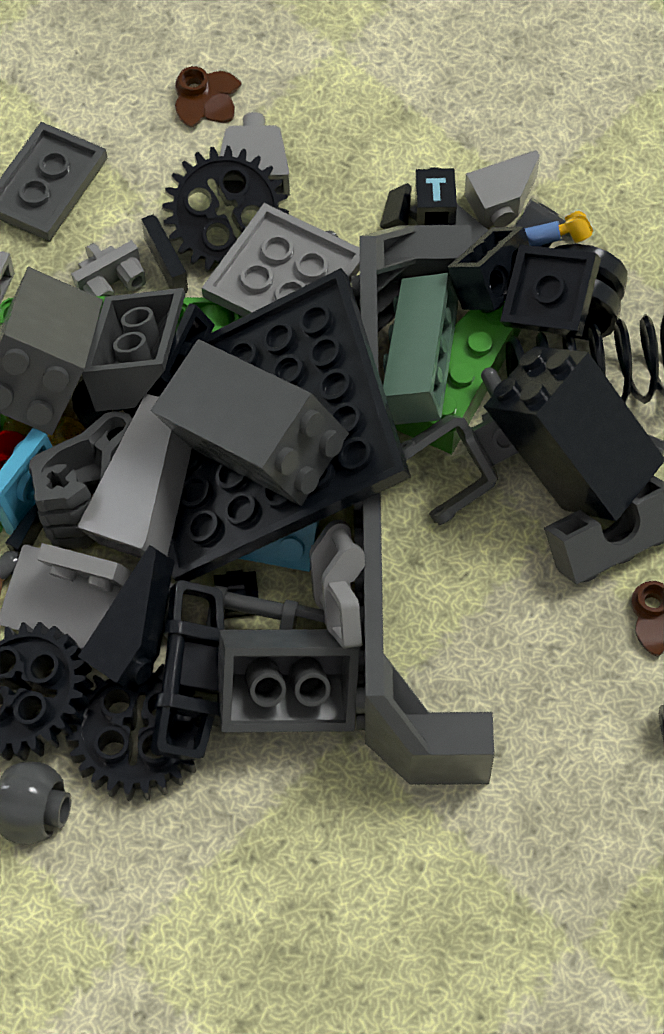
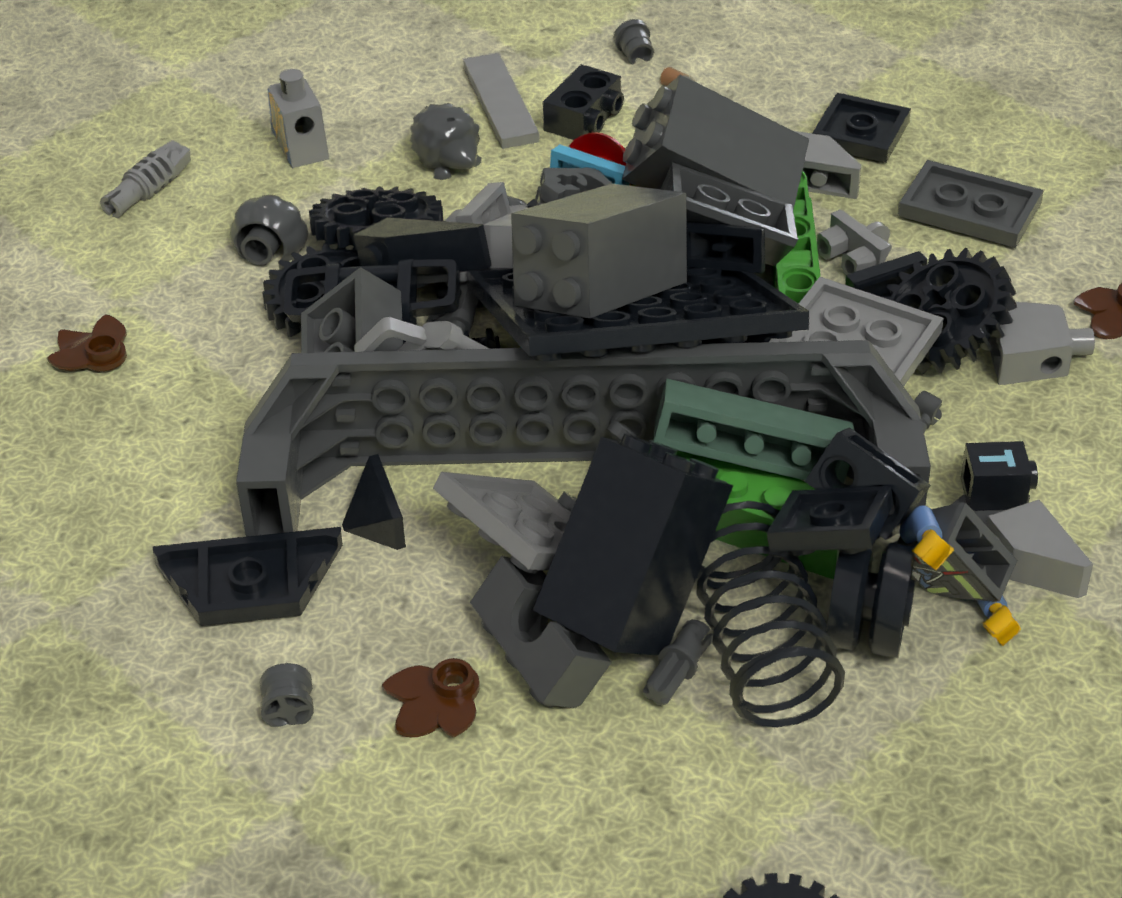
camera: 90 degrees right, 20 degrees down
(195, 976) = (96, 350): none -> reddish brown plate
(452, 670) = (374, 508): none -> black slope
(502, 531) = (508, 514): none -> light grey plate
(537, 774) = (249, 574): none -> black wing

